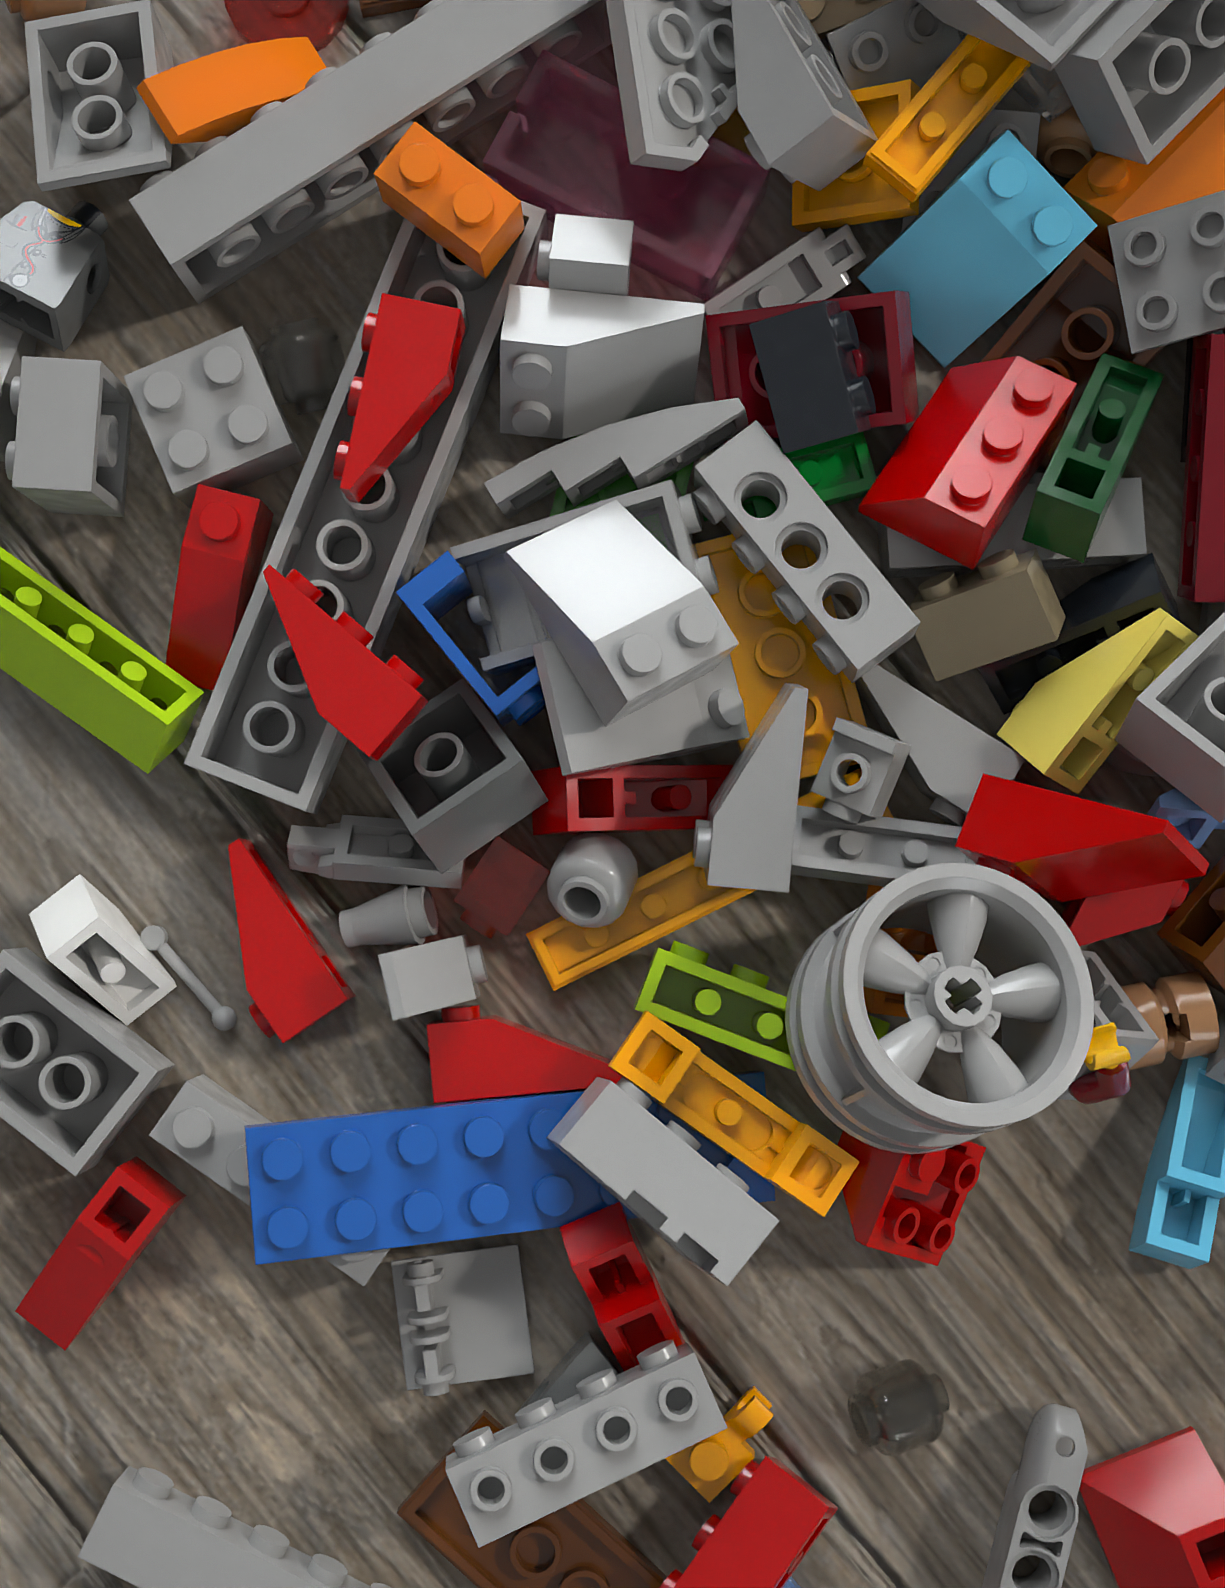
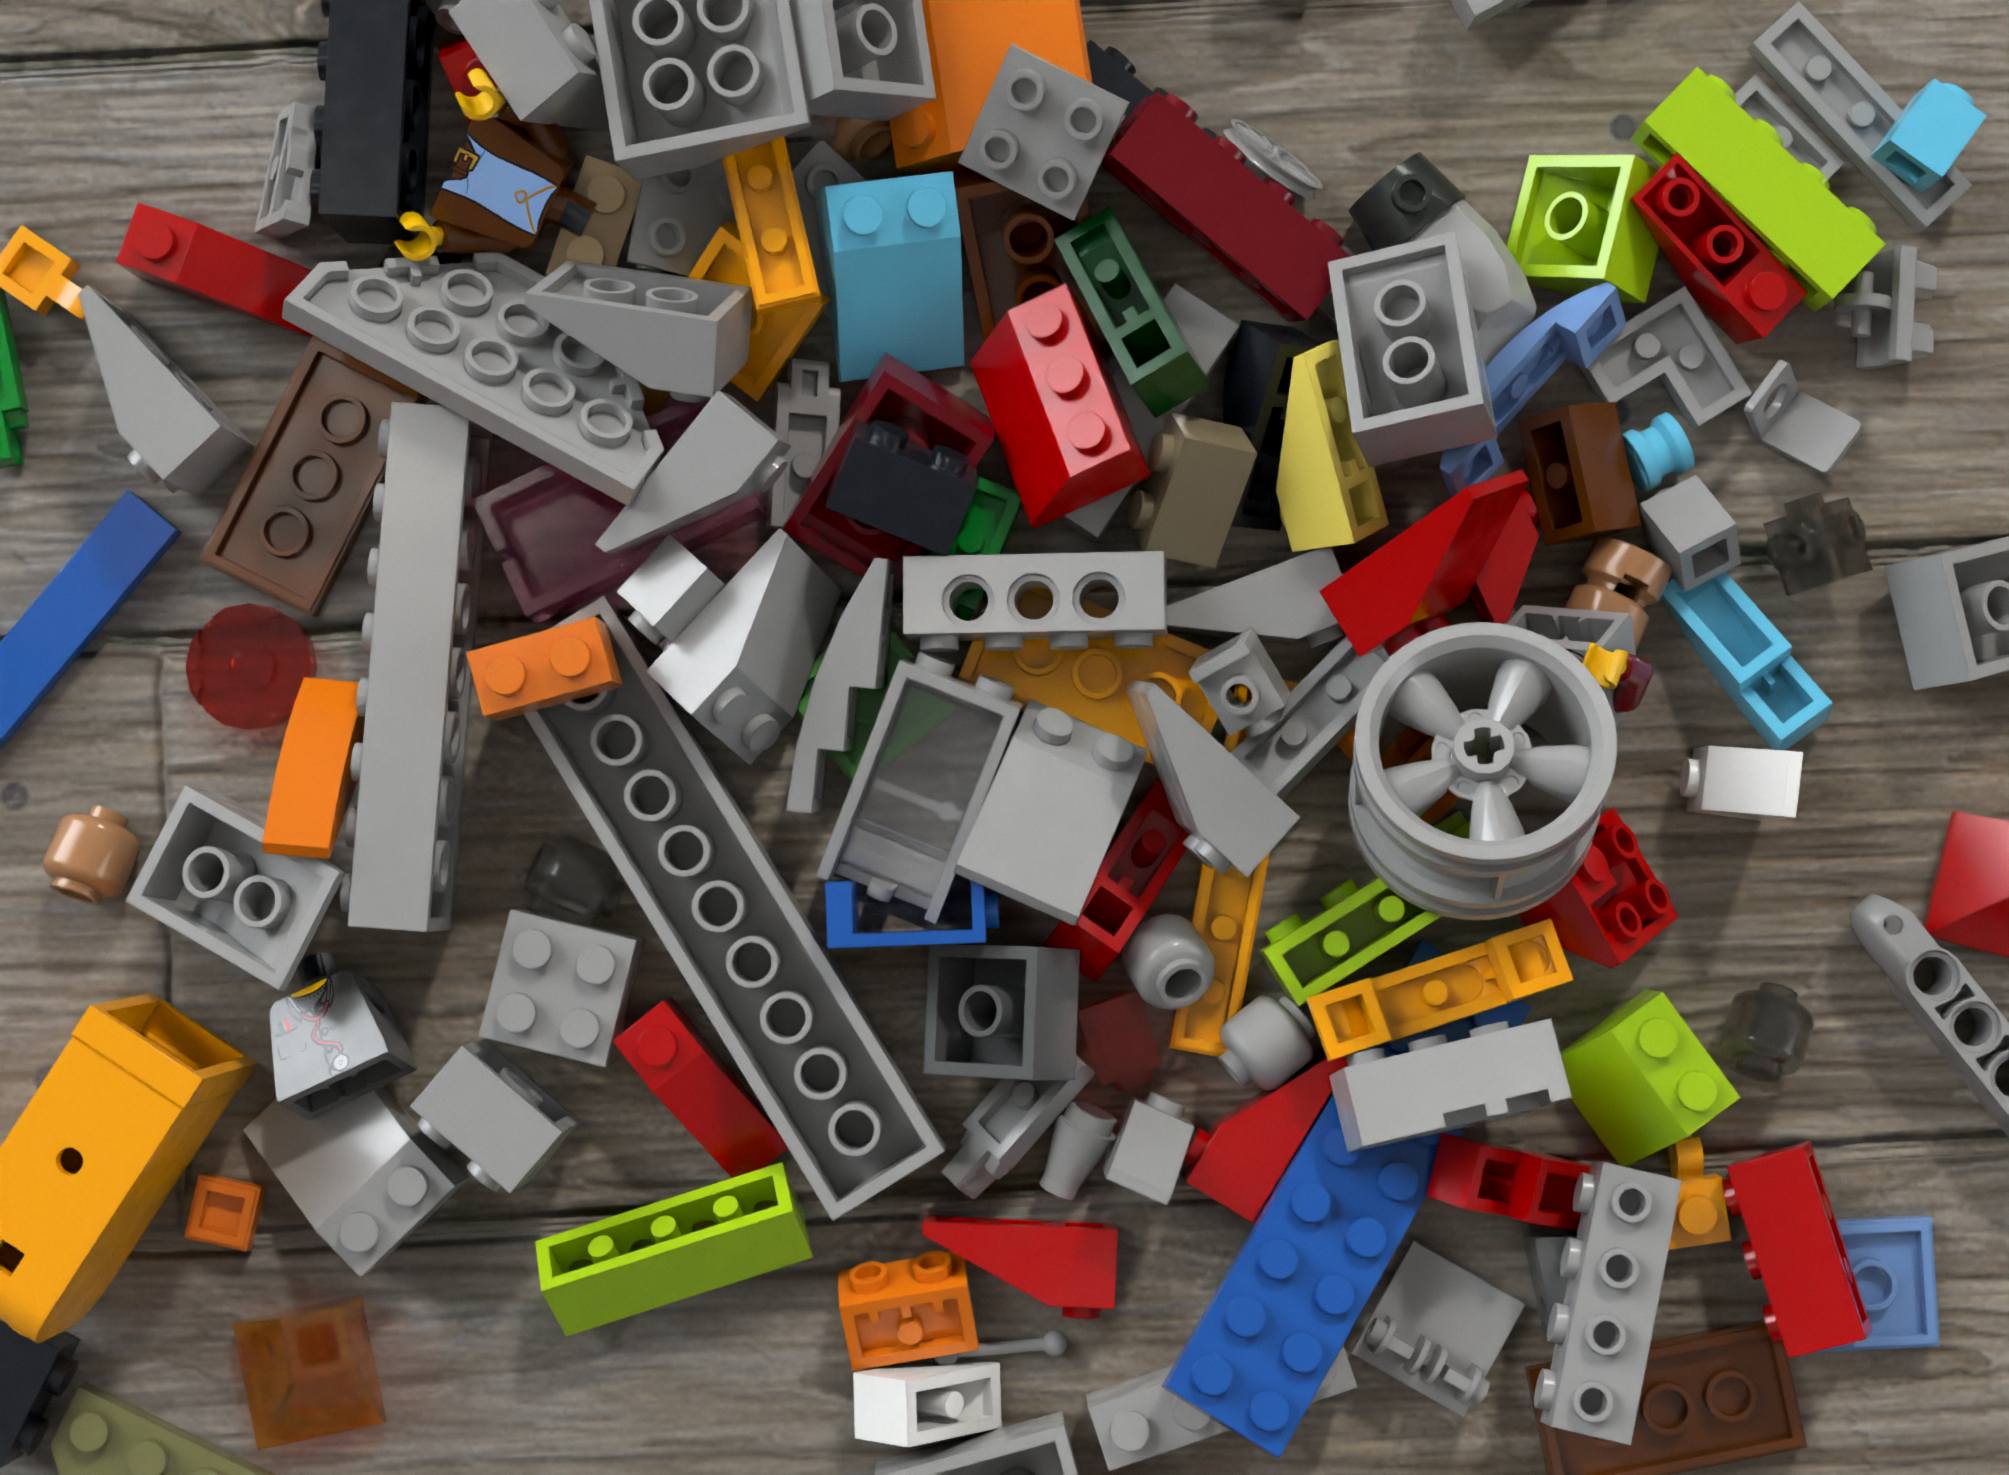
camera: 55 degrees left, 0 degrees up
(161, 880) = (906, 1310): none -> orange bracket
(346, 681) = (867, 1039): red slope -> none
(405, 380) = (661, 811): red slope -> none
(587, 1007) = (1266, 1042): none -> light grey head
(620, 609) = (975, 780): light grey slope -> none
(706, 209) = (708, 469): none -> light grey slope
(786, 1335) = (1644, 1079): none -> lime slope
(1088, 1237) = (1742, 782): none -> white slope

